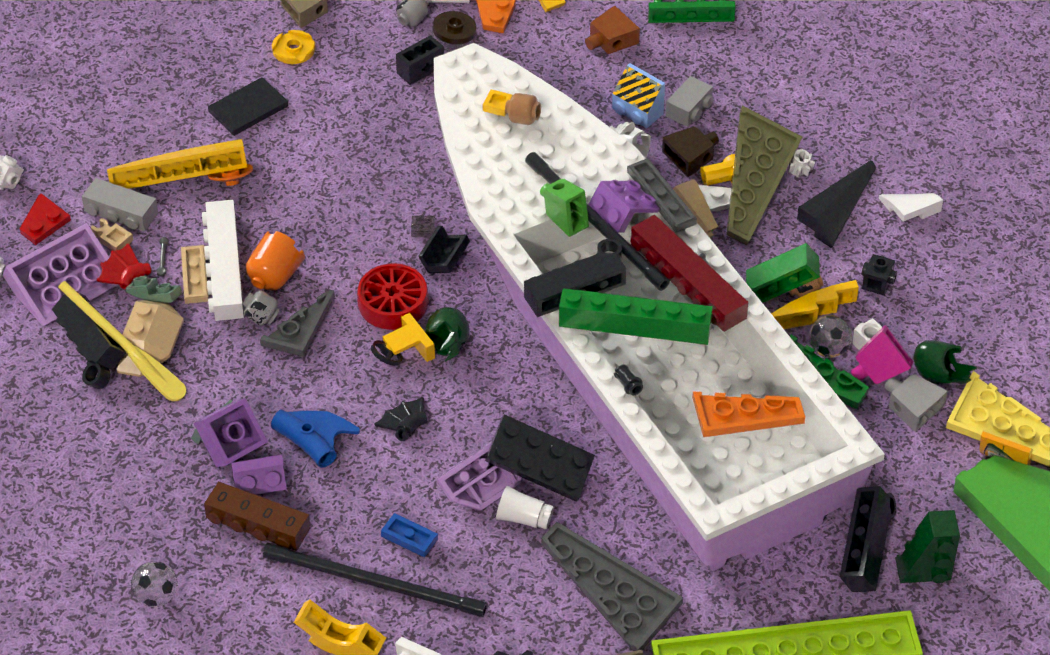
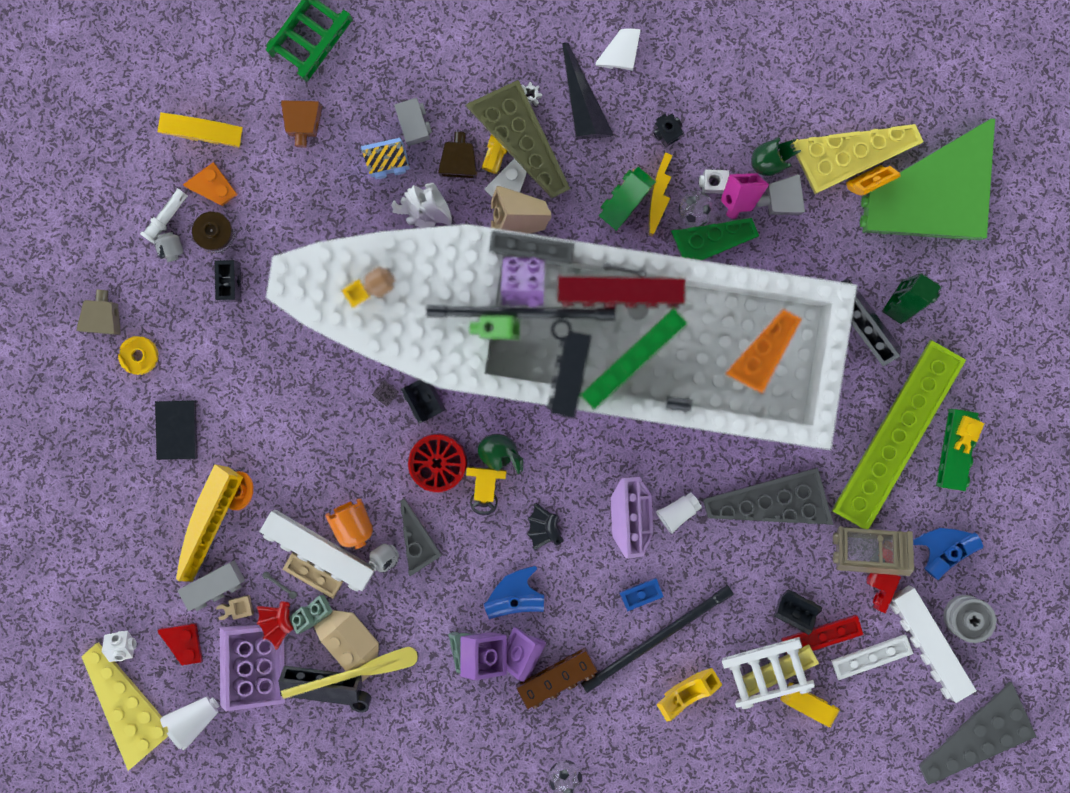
camera: 55 degrees left, 40 degrees up
(540, 457) = (653, 477): black plate -> none

